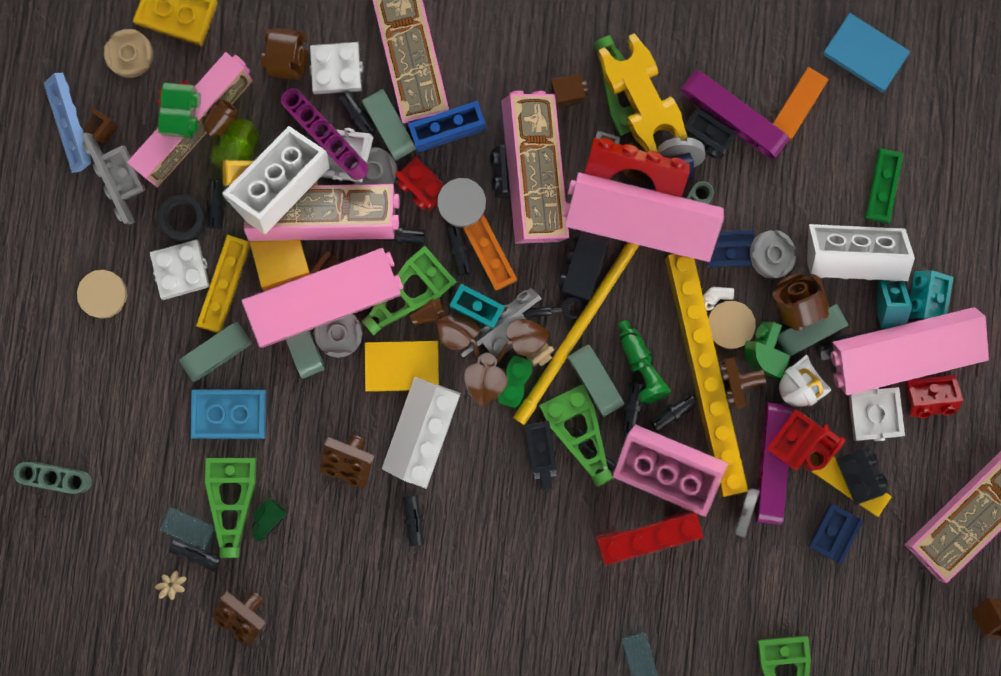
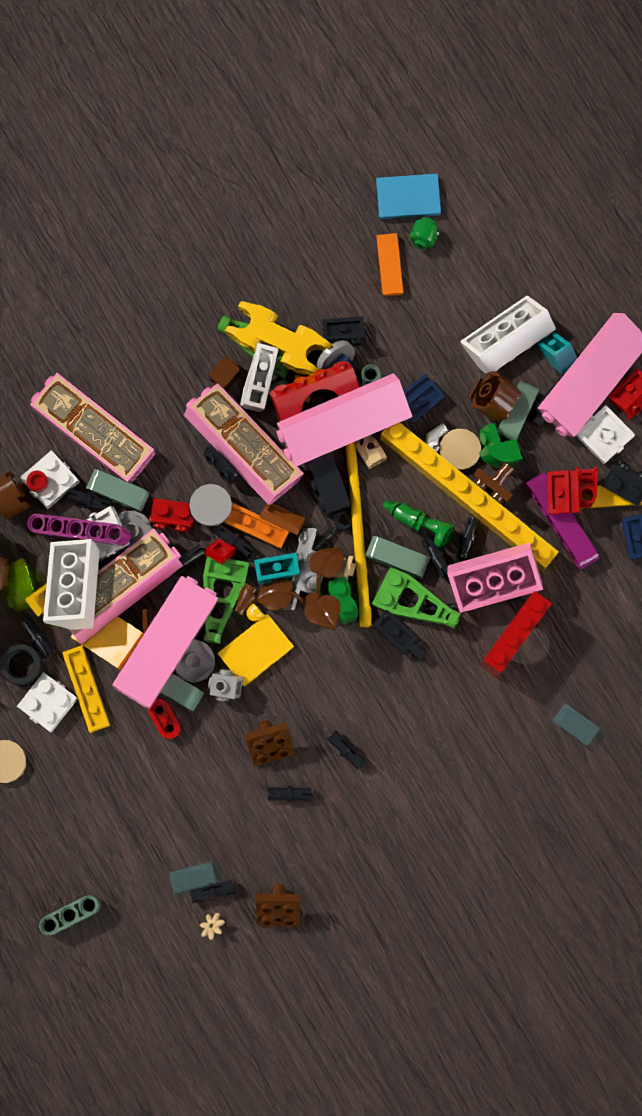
camera: 35 degrees left, 5 degrees down
(215, 351) = (117, 739): sand green beam -> none
(228, 414) = (159, 776): dark azure tile -> none
(230, 471) = (192, 814): bright green plate -> none
(267, 518) = (243, 827): dark green rock -> none
(271, 365) = (164, 719): none -> red plate
(322, 61) = (37, 481): none -> red tile
(331, 520) = (289, 794): none -> black pin
(348, 378) = (225, 685): none -> light grey brick
(420, 432) = (304, 683): white slope -> none
(426, 331) = (254, 613): none -> yellow hinge
(438, 251) = (220, 551): none -> red tile
(447, 126) = (160, 461): blue brick -> none
(519, 264) = (283, 518): none -> dark orange tile
(596, 118) = (259, 378): none -> white slope
(646, 264) = (370, 451): none -> tan rock
(734, 114) = (351, 304): magenta beam -> none
(747, 512) = (569, 566): light grey tile -> none
(772, 254) = (451, 380): light grey tile -> none
(802, 384) = (539, 452): white helmet -> none
(854, 98) = (424, 233): none -> green head
(883, 186) = (490, 277): green tile -> none
(930, 294) = (578, 327): teal bracket -> none

